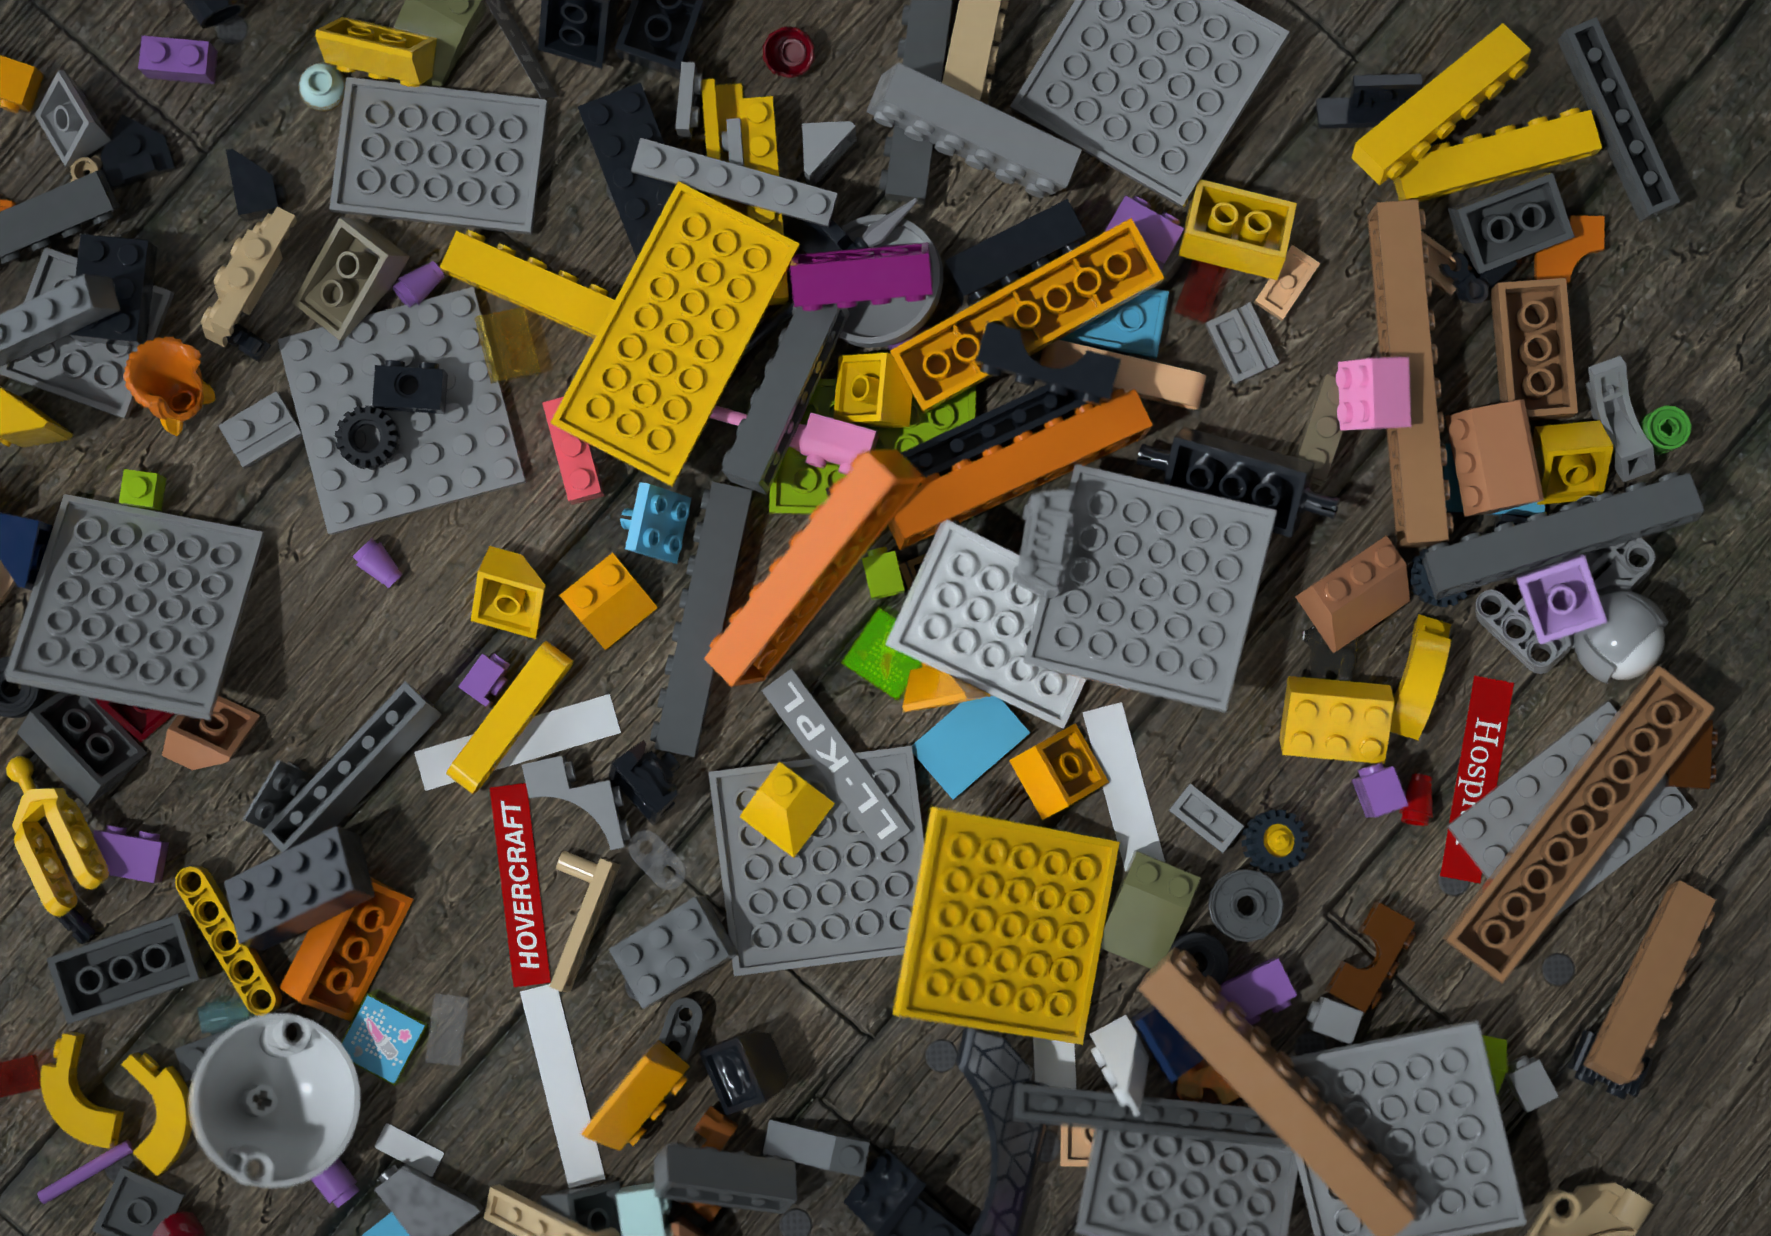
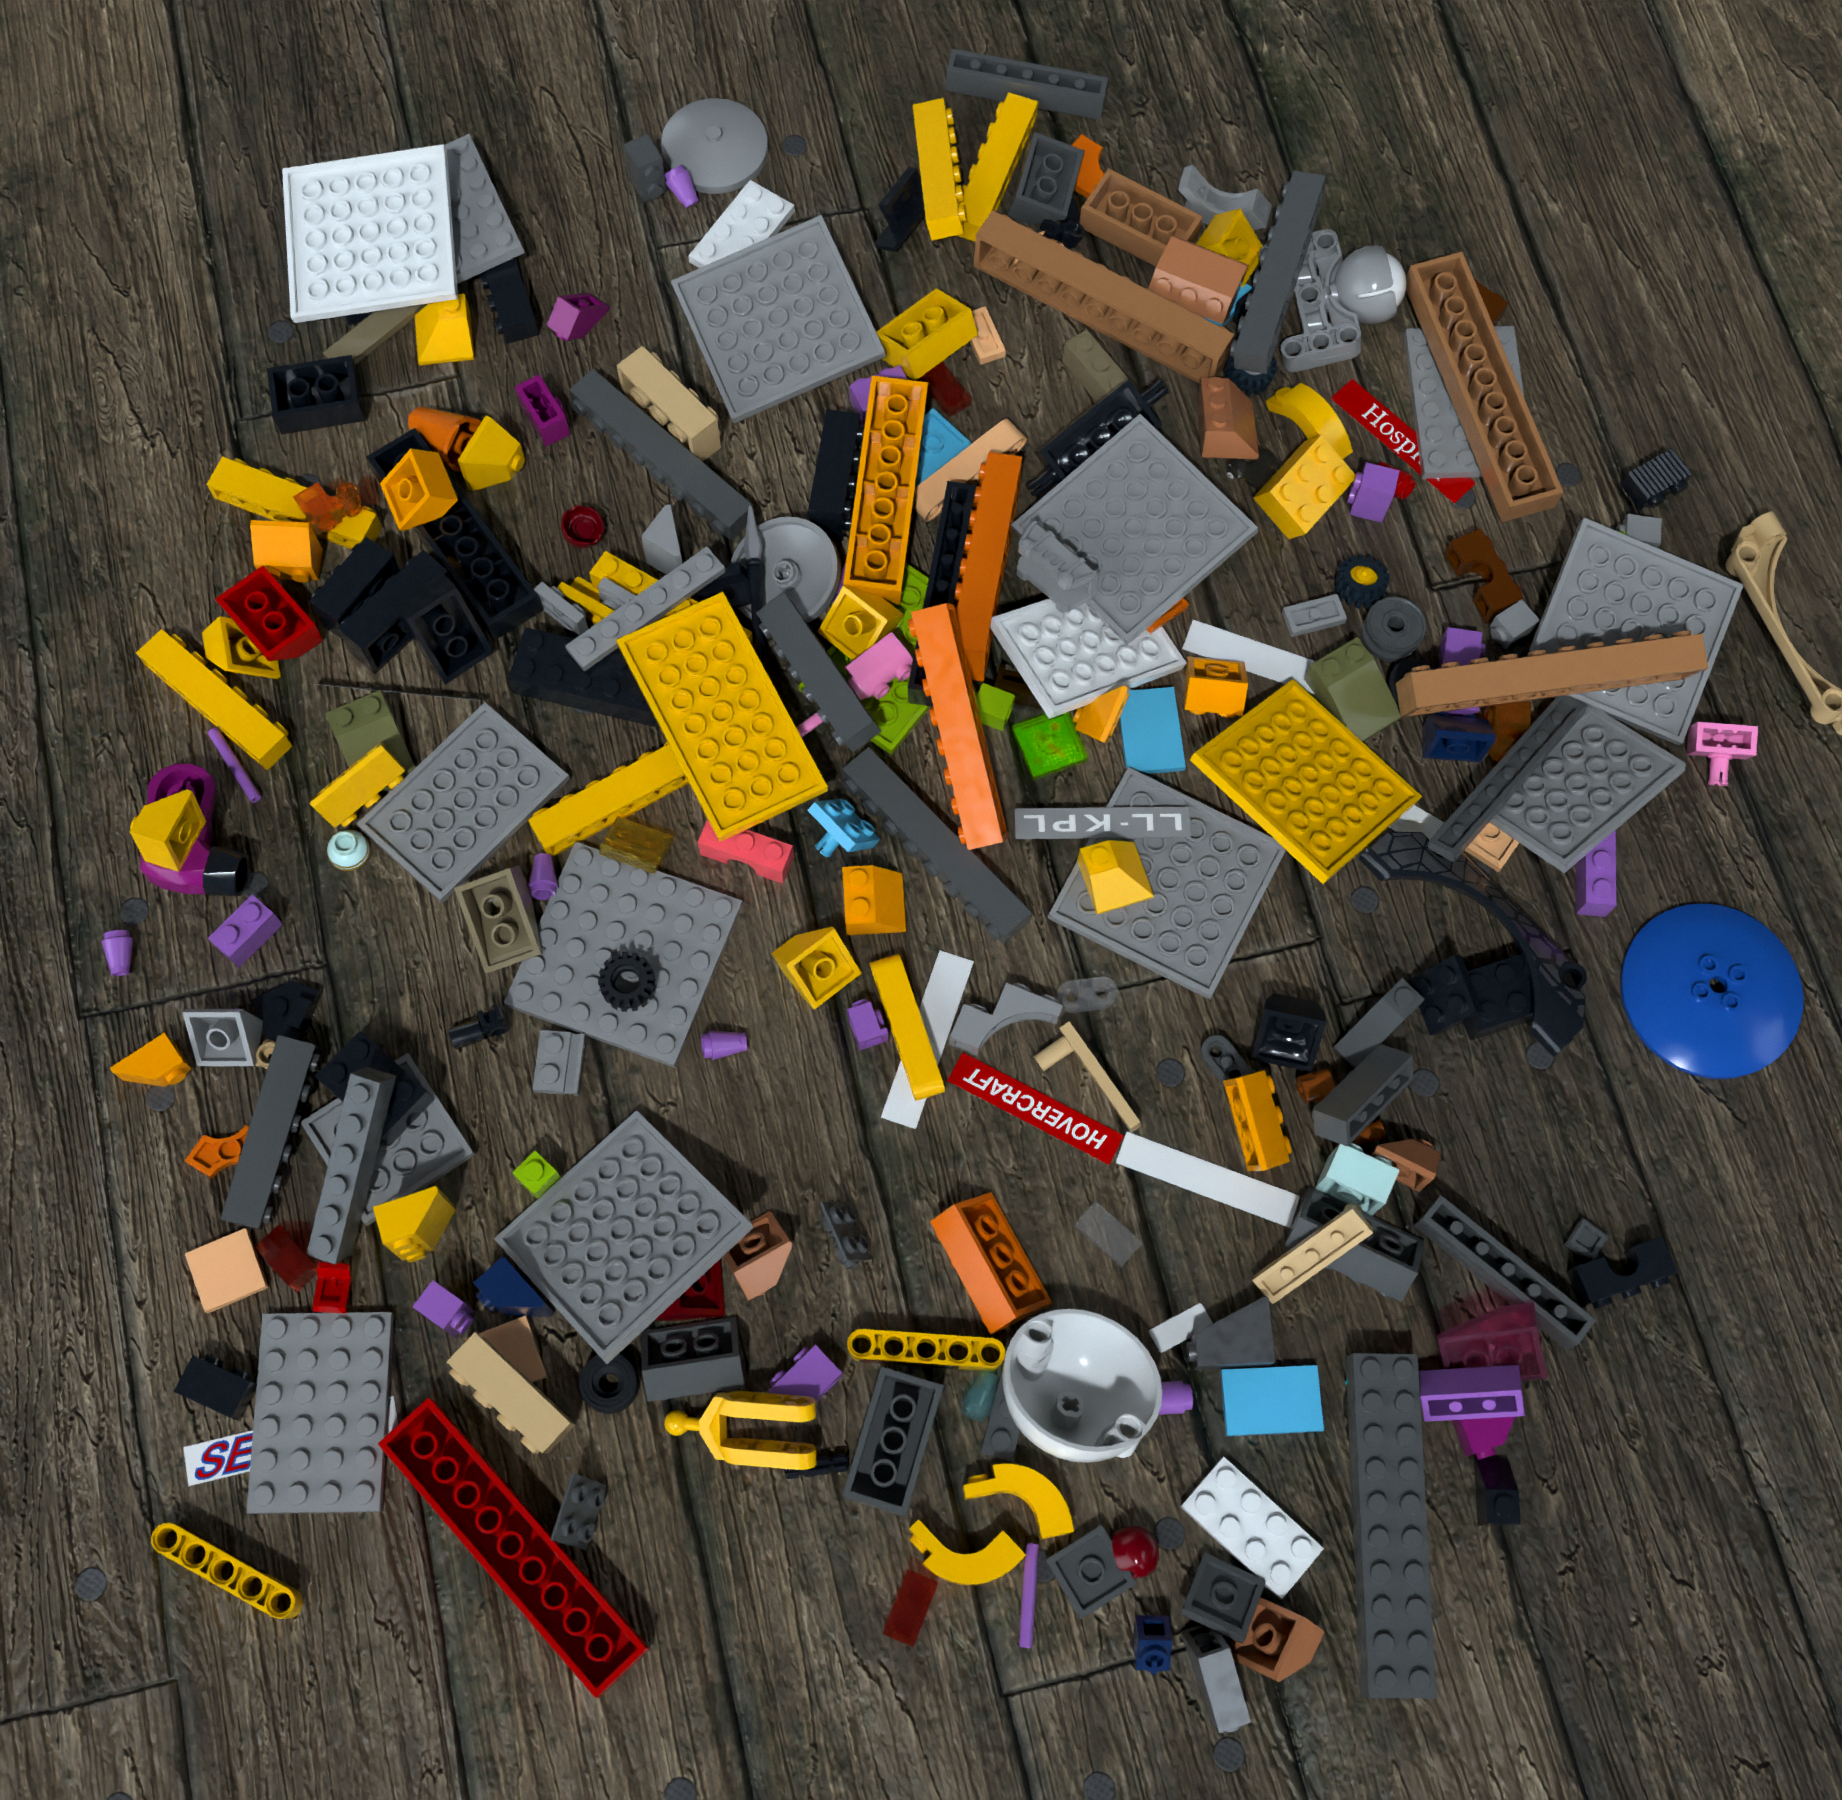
camera: 60 degrees left, 15 degrees down
(168, 381) = (472, 1094): orange hair -> none
(246, 275) = (445, 984): tan bracket -> none
(254, 188) = (381, 941): black slope -> none
(299, 888) = (927, 1259): black brick -> none
(354, 768) = (866, 1165): dark grey brick -> none
(382, 1038) = (1082, 1283): medium azure tile -> none
(427, 399) = (611, 942): black brick -> none
(646, 780) = (1027, 959): black brick -> none
(673, 951) = (1165, 1022): dark grey brick -> none
(861, 276) = (778, 563): magenta slope -> none
(973, 131) = (732, 438): light grey brick -> none
(1004, 352) = (903, 506): black arch -> none
(1125, 1061) = (1449, 770): white slope -> none
(1242, 343) = (1002, 387): light grey plate -> none
(1374, 394) = (1103, 313): bright pink brick -> none
(1561, 598) = (1322, 293): lavender slope -> none
(1650, 983) = (1619, 416): medium nougat brick -> none
(1666, 428) = (1249, 175): bright green wheel -> none

